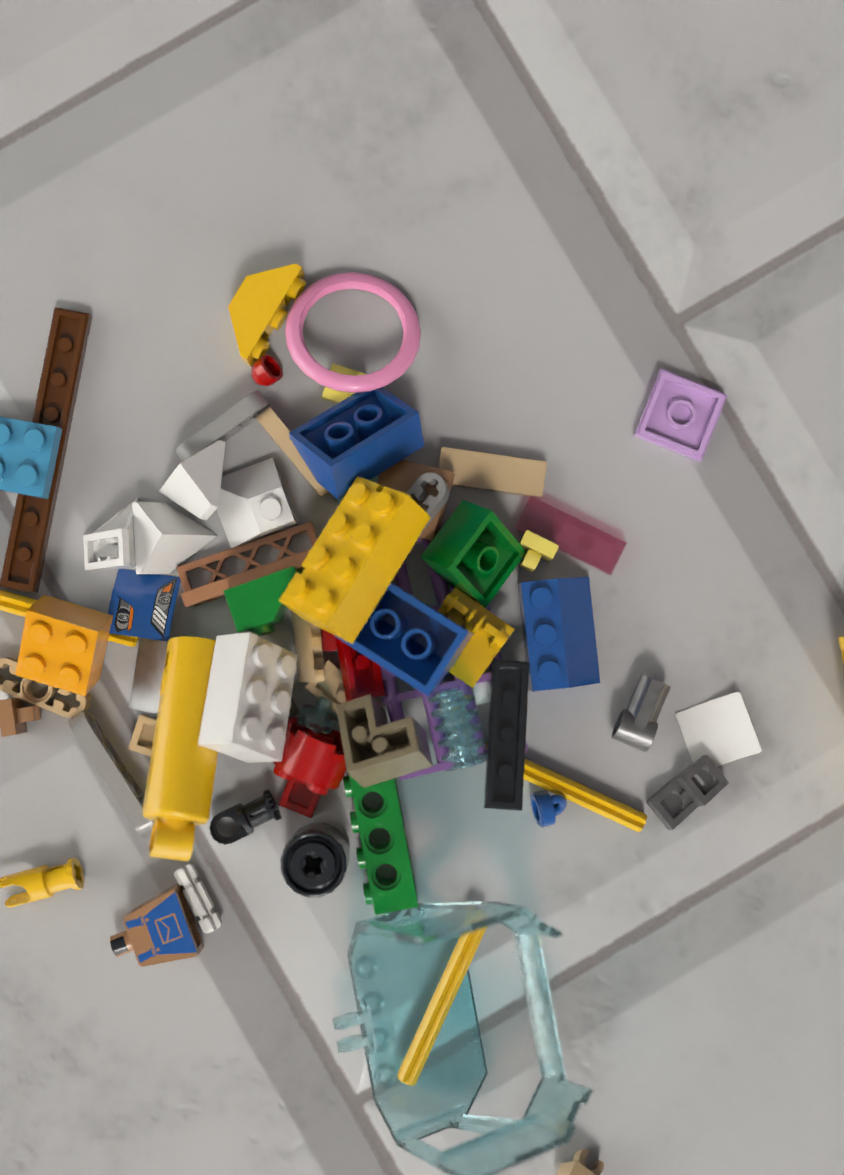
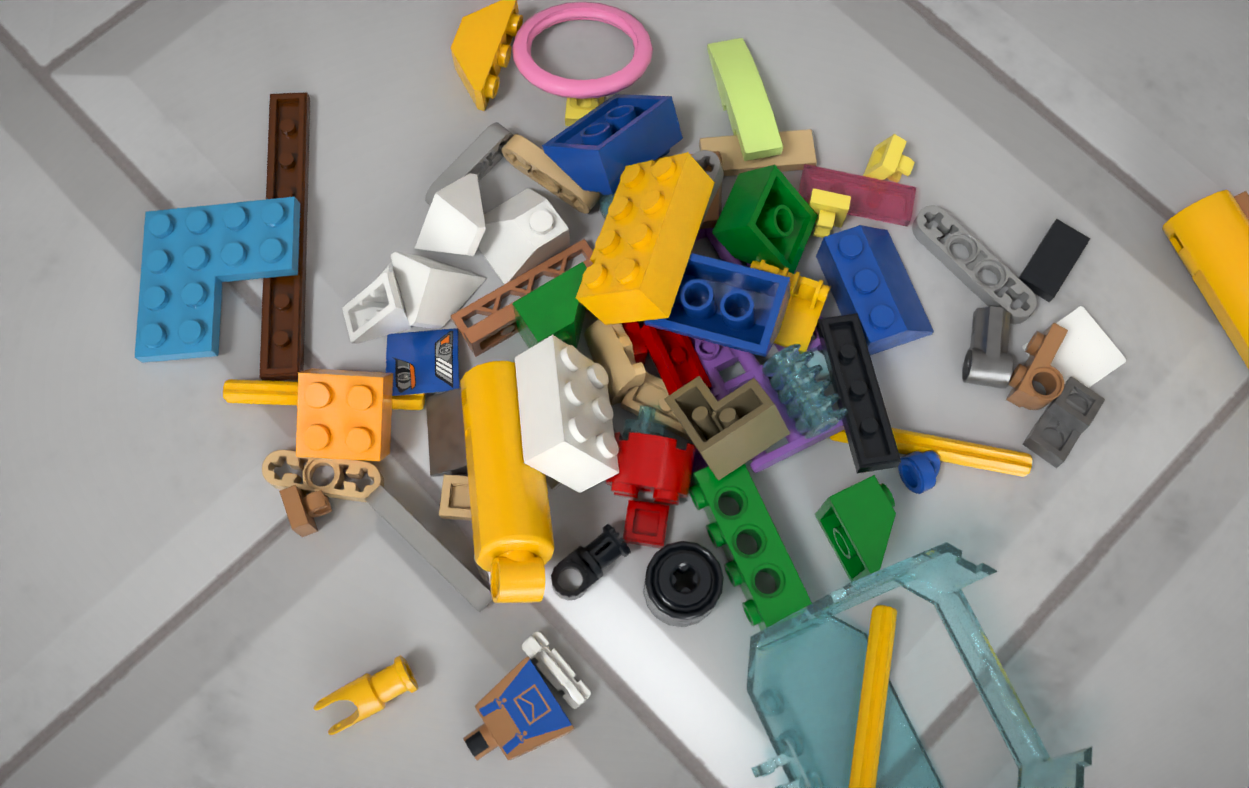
camera: 15 degrees left, 15 degrees down
(266, 371) = (501, 107): red hinge -> none
(476, 848) = (859, 525): none -> green slope
(492, 416) = (745, 99): none -> yellowish green slope
(607, 512) = (888, 160): none -> light yellow tile
(661, 625) = (979, 259): none -> light grey beam
(680, 415) = (928, 63): lavender tile -> none
(688, 727) = (1037, 368): none -> medium nougat plate
(729, 641) = (1053, 260): none -> black tile

